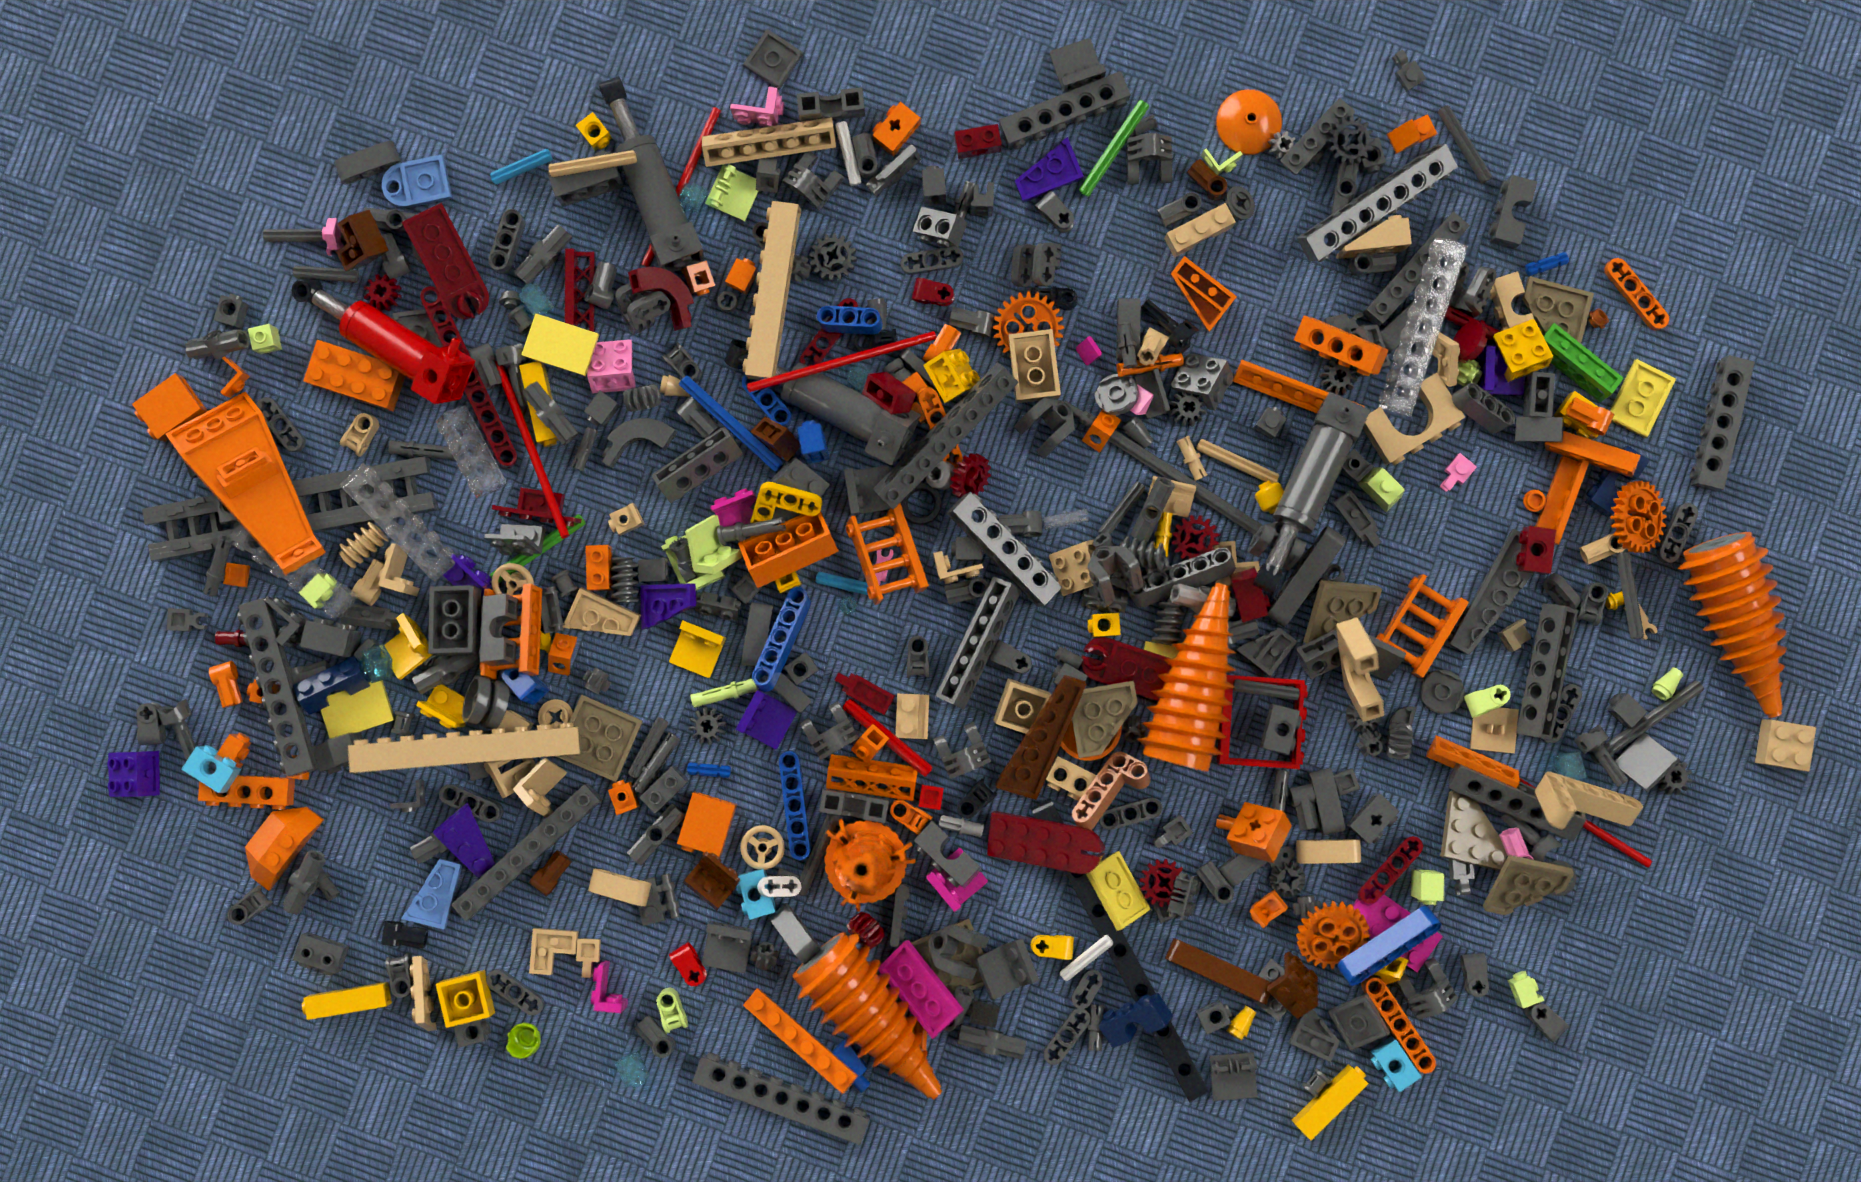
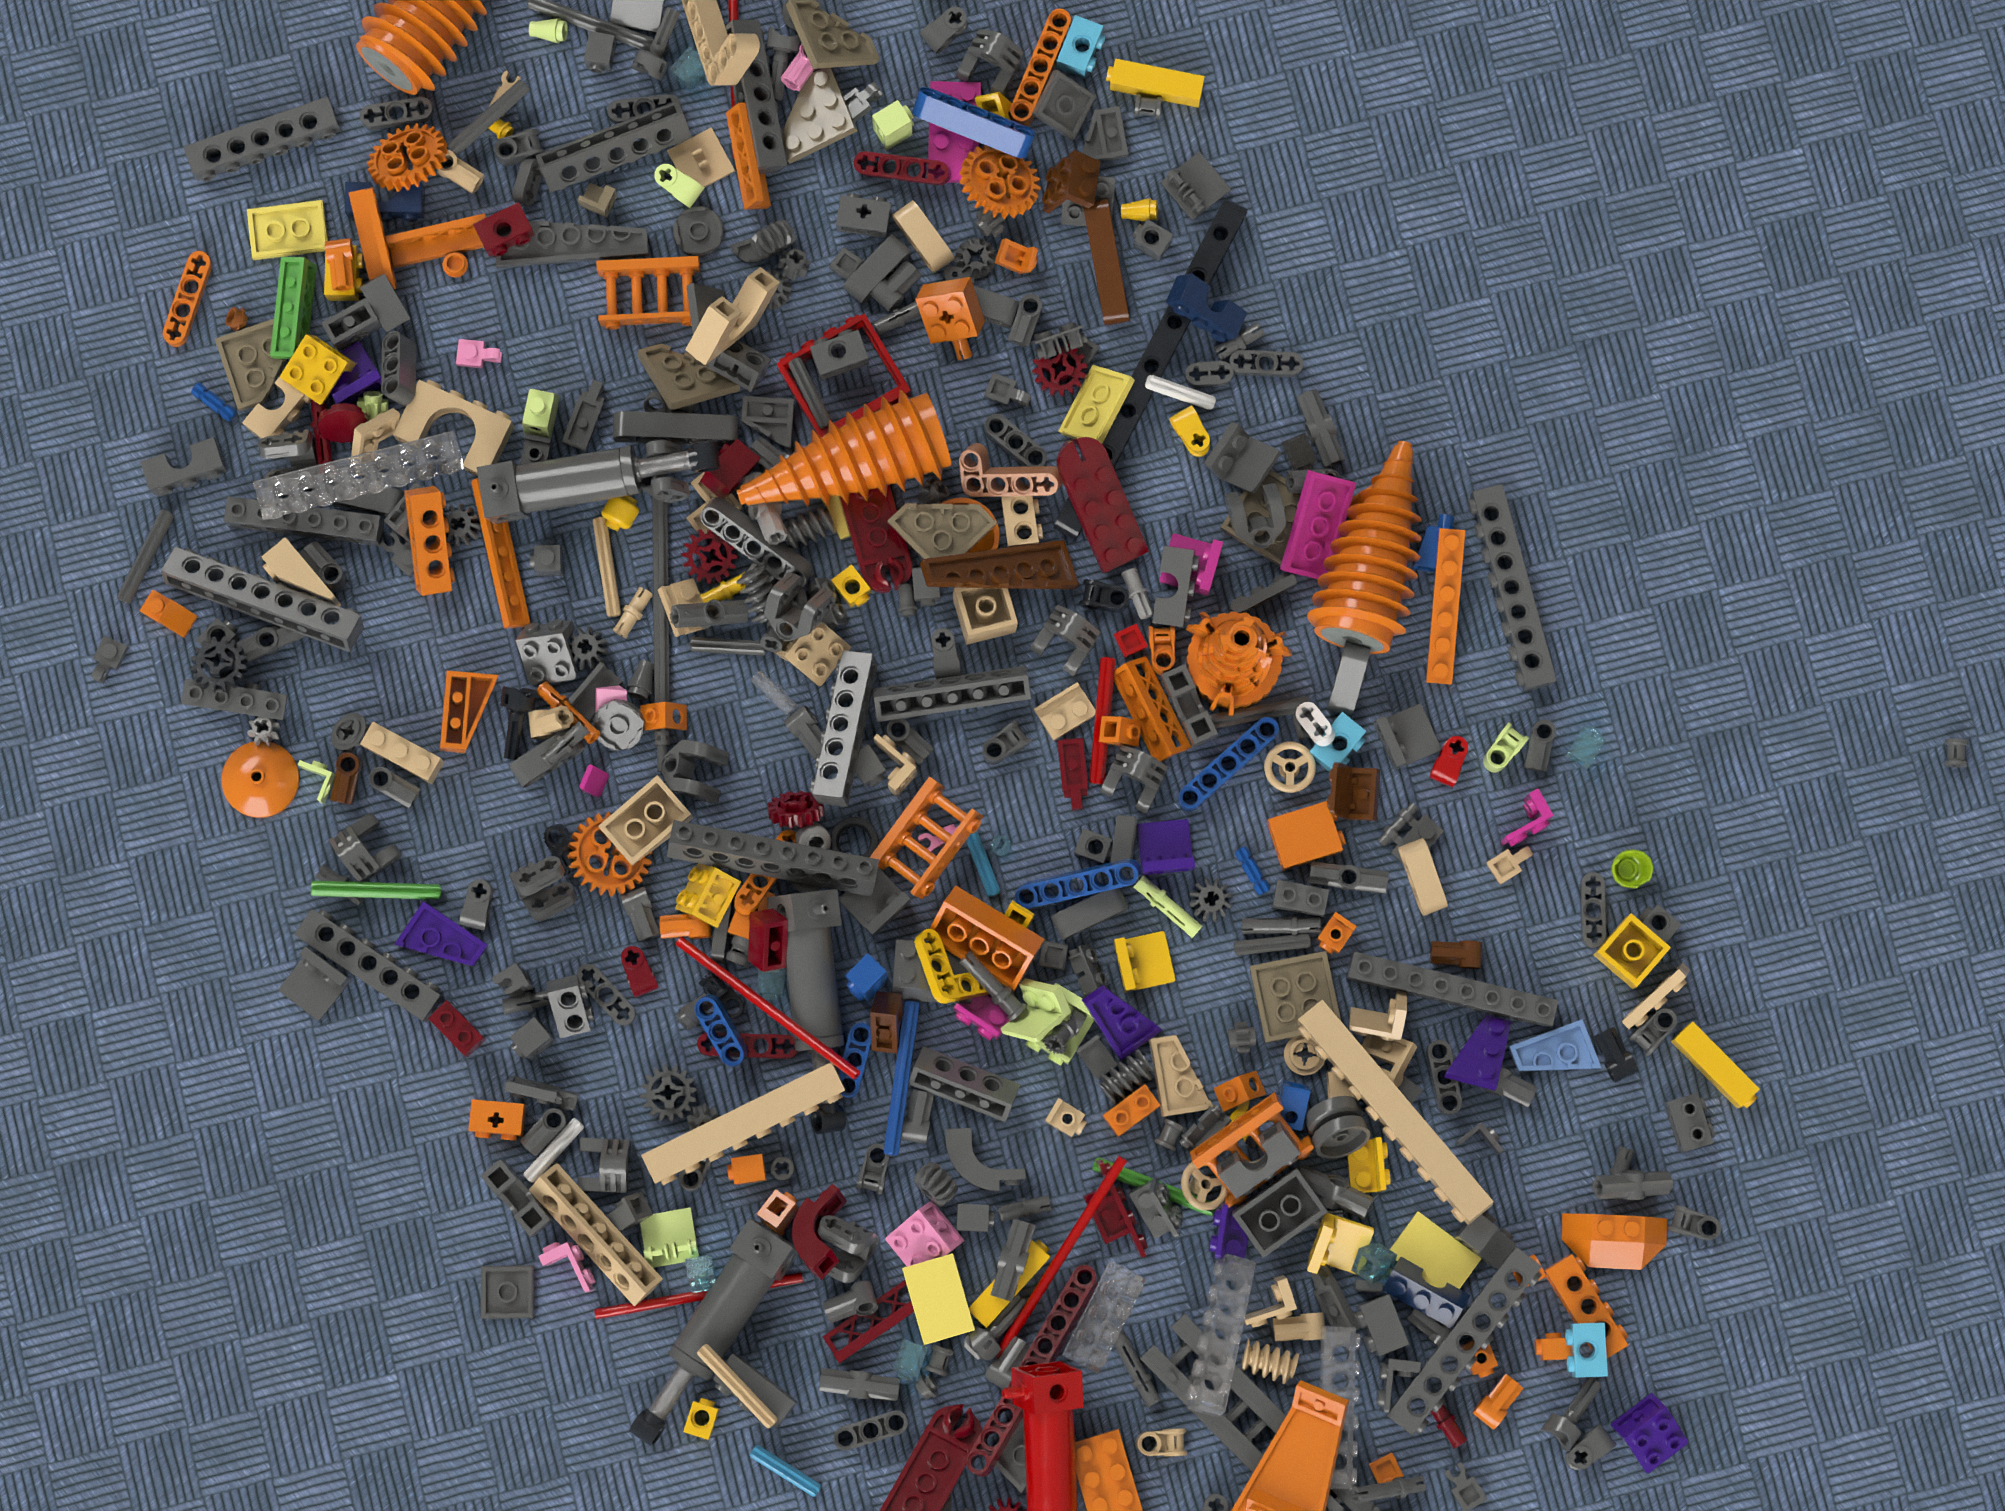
camera: 130 degrees left, 5 degrees down
(319, 589) = (1340, 1360): yellowish green brick -> none
(398, 722) = (1414, 1199): dark grey bush -> none
(547, 943) = (1527, 911): tan plate -> none
(671, 387) = (904, 1164): tan cone -> none
(764, 955) = (1390, 695): dark grey gear -> none
(868, 929) = (1295, 615): dark red gear -> none

